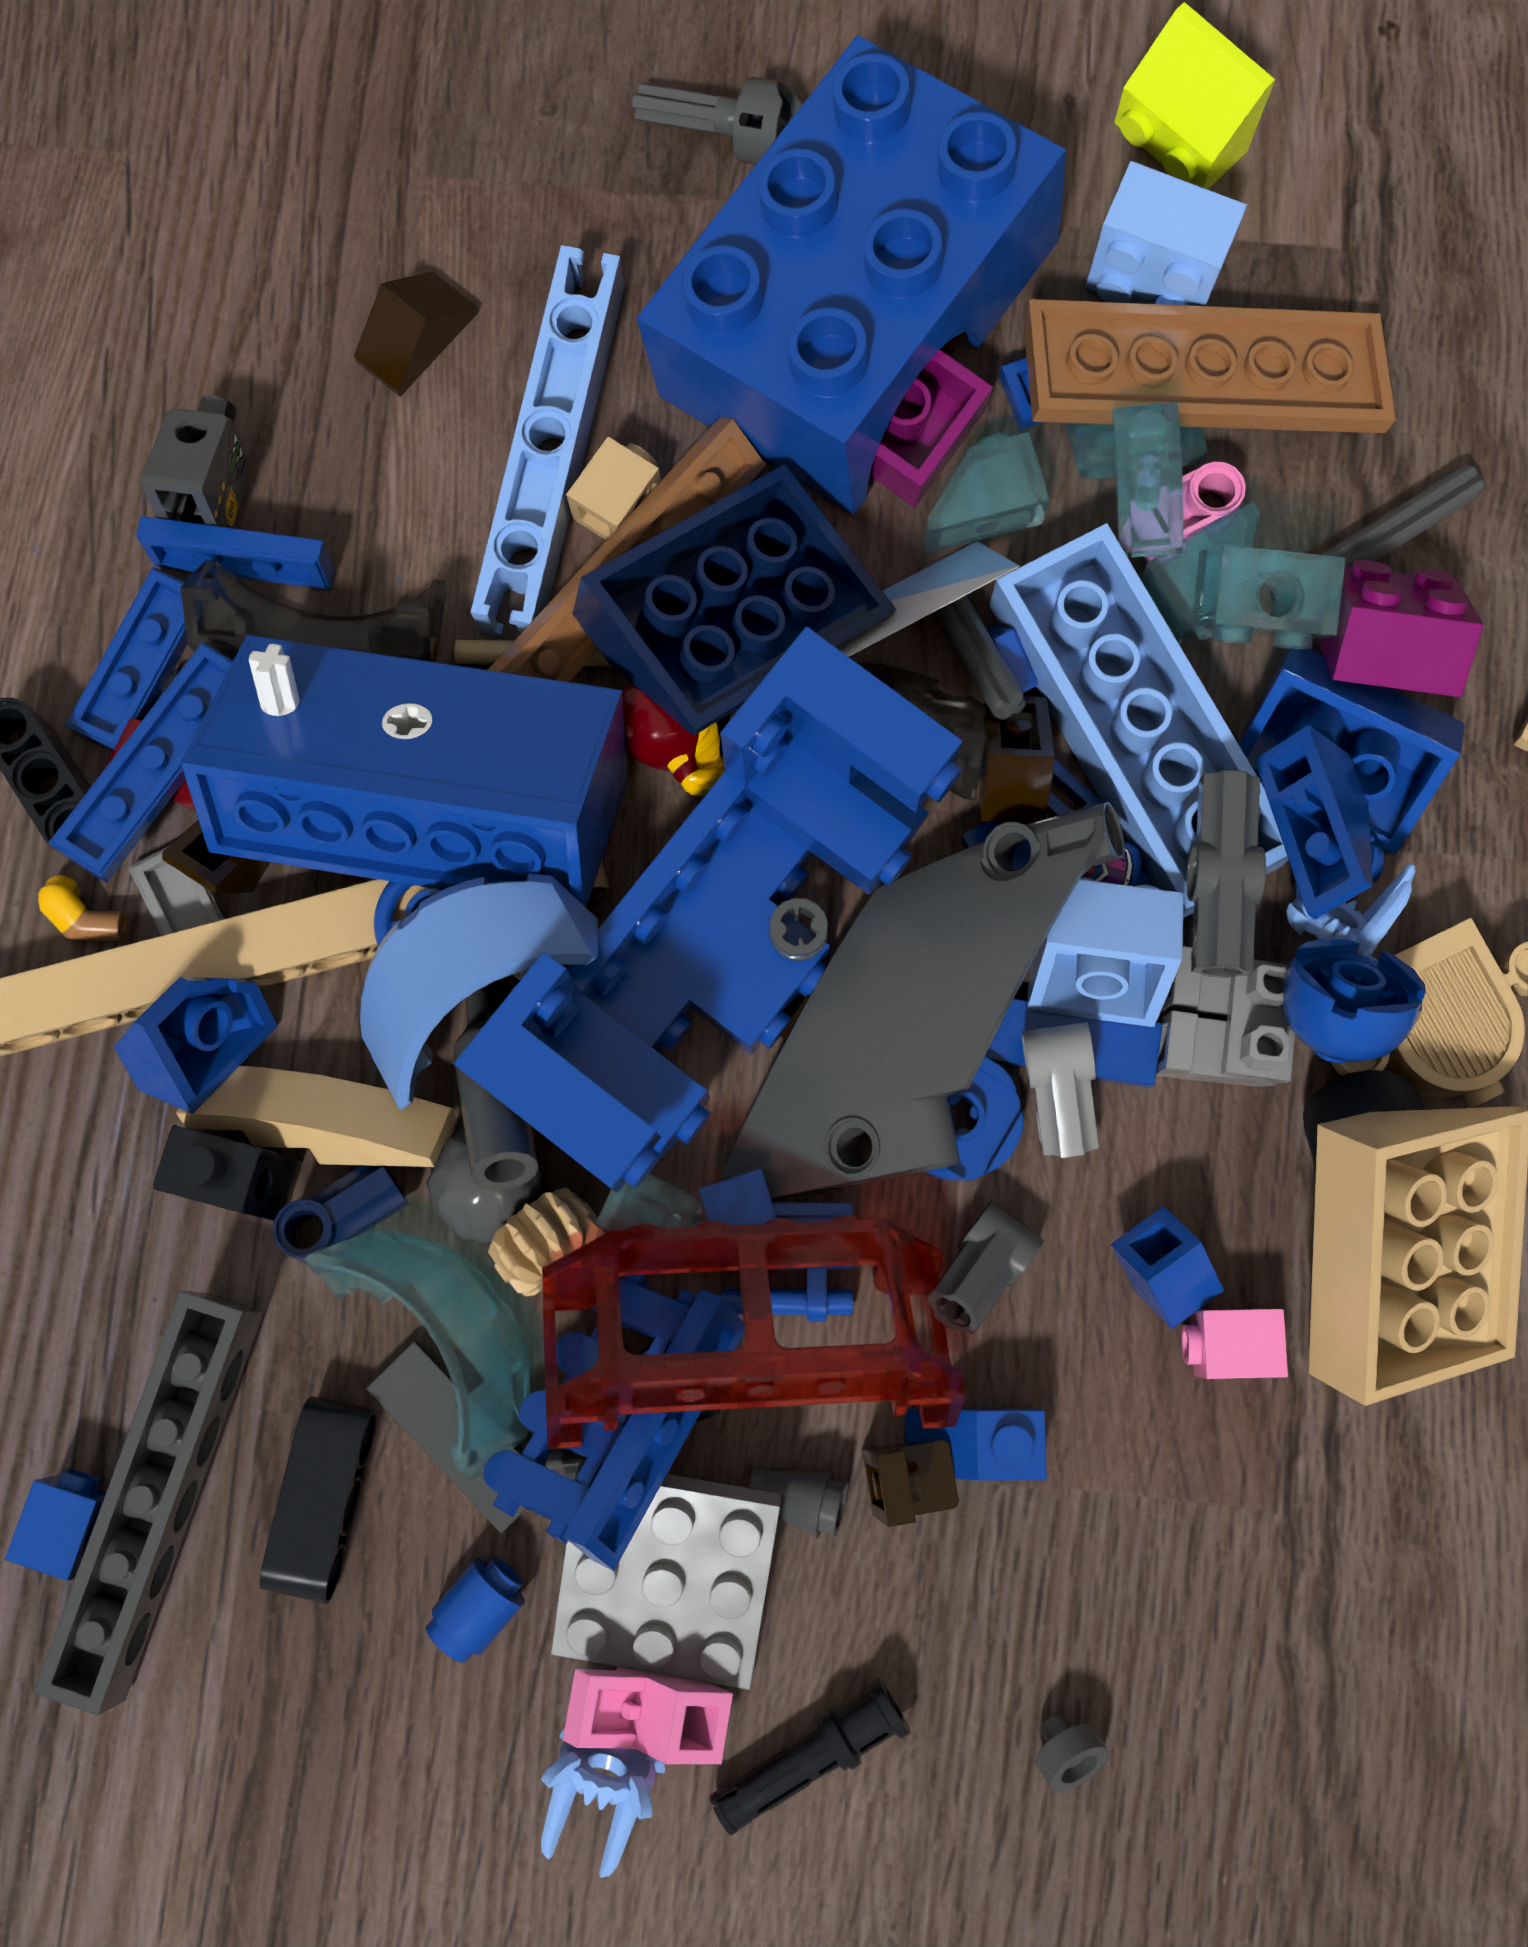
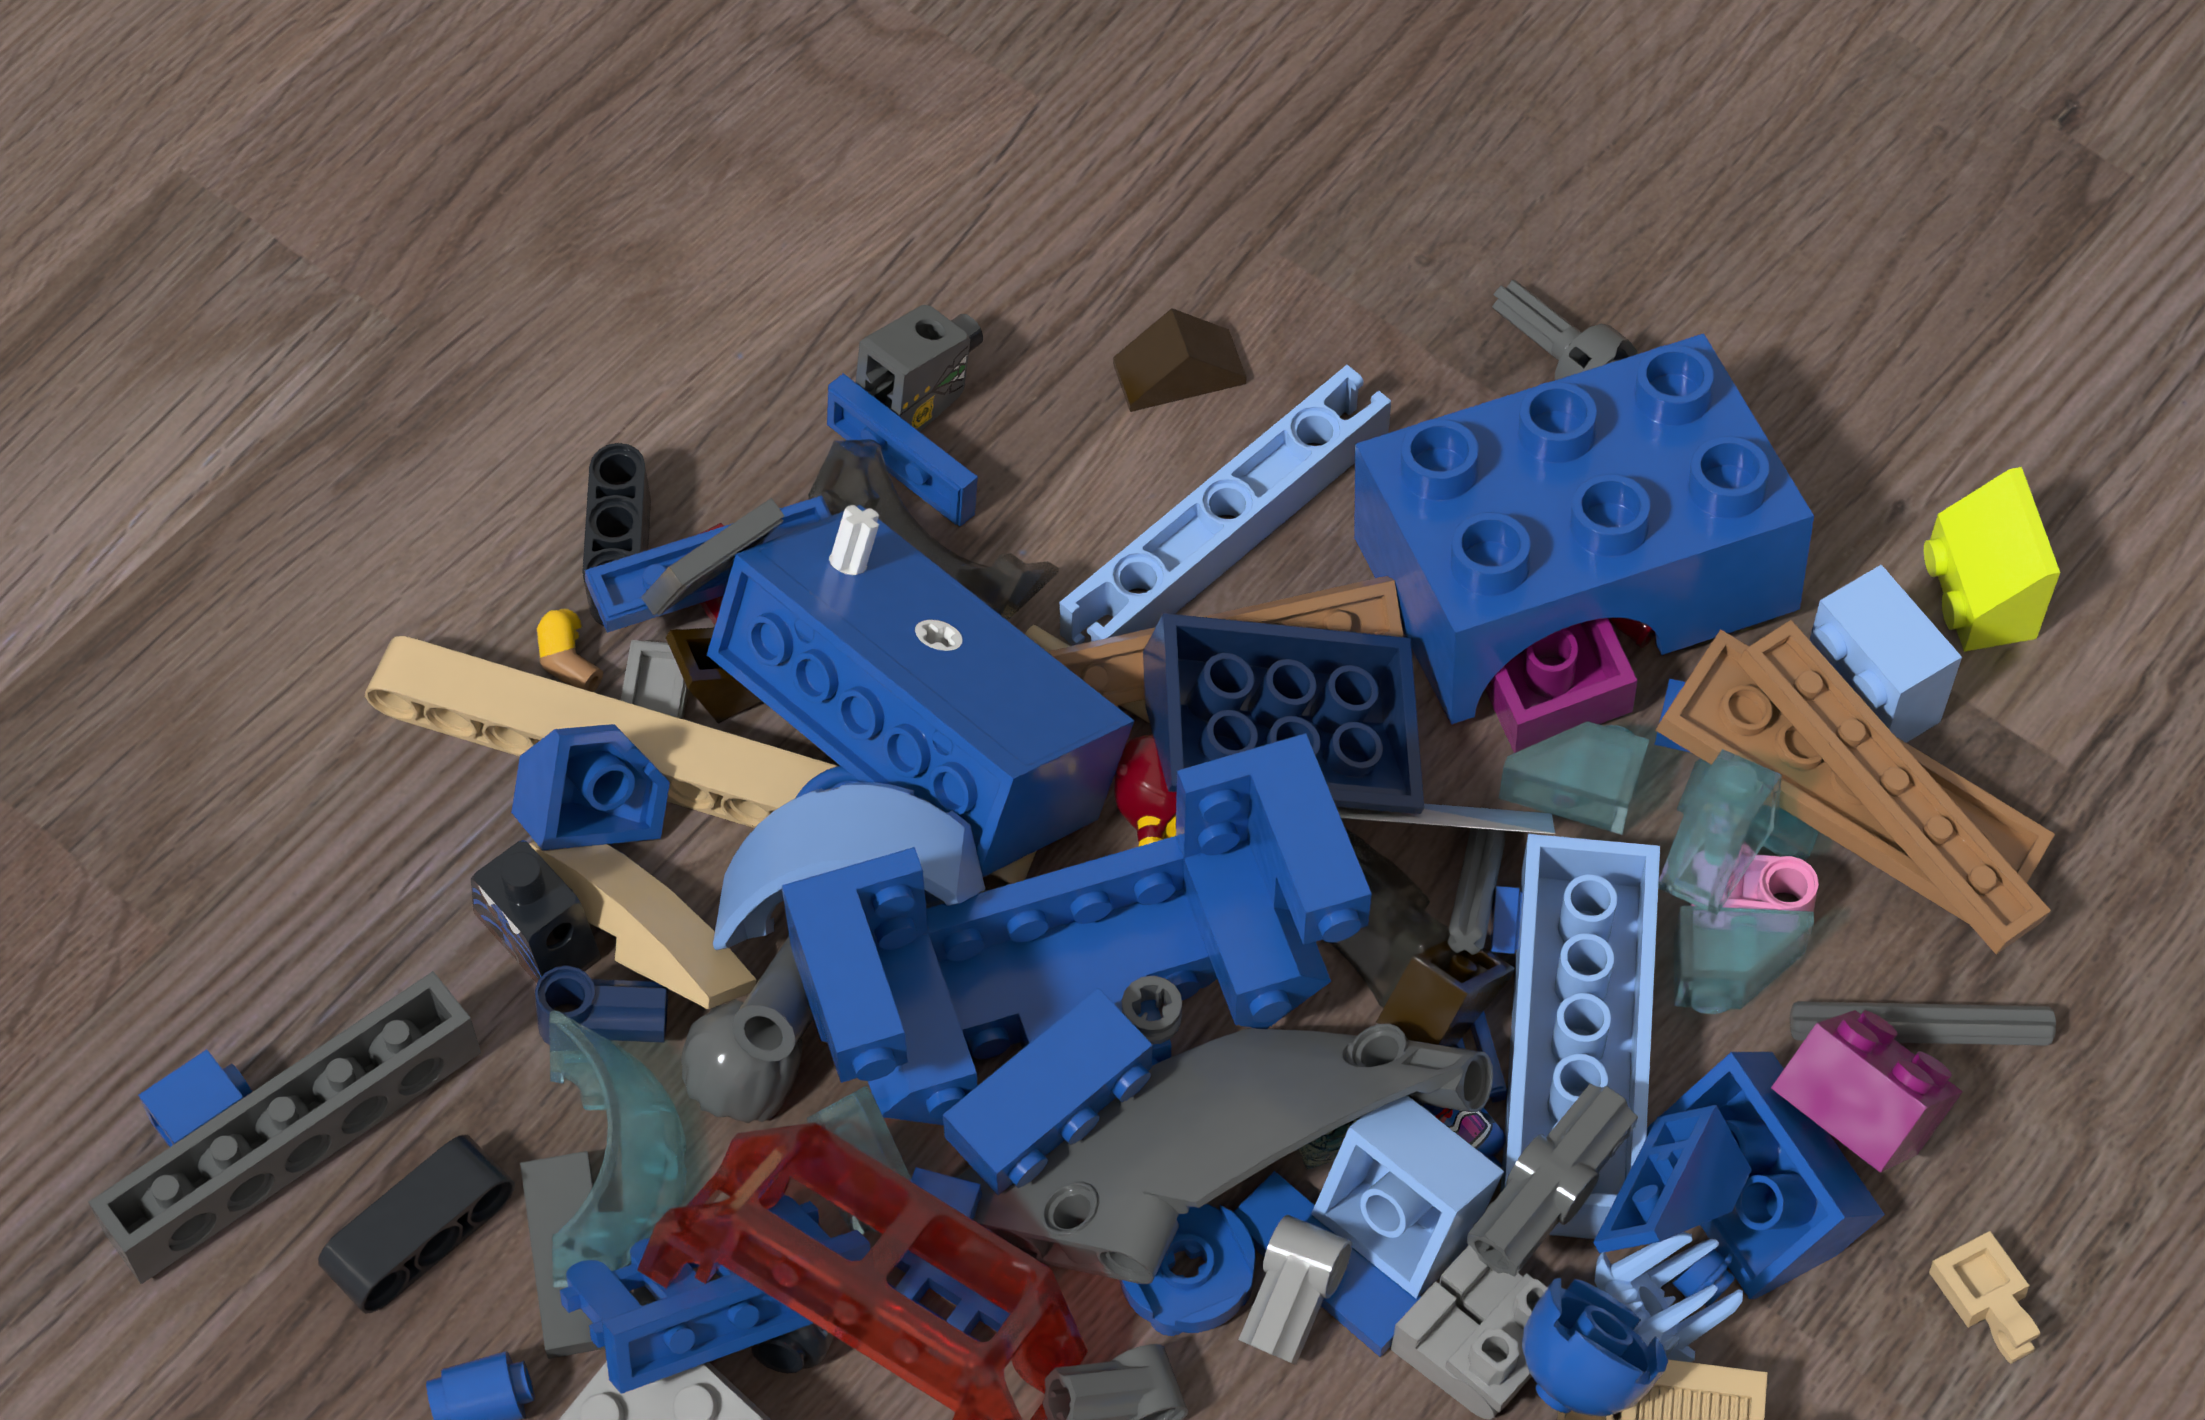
camera: 30 degrees right, 20 degrees down
(134, 662) = (778, 473): blue tile -> none
(158, 769) = (712, 557): none -> dark grey tile
(541, 1235) = (745, 1111): tan gear -> none
(612, 486) = (1254, 575): tan brick -> none
(772, 1059) = (1049, 1093): none -> blue brick
(1251, 352) = (1894, 787): none -> medium nougat plate
(1303, 586) = (1747, 948): clear light blue brick -> none

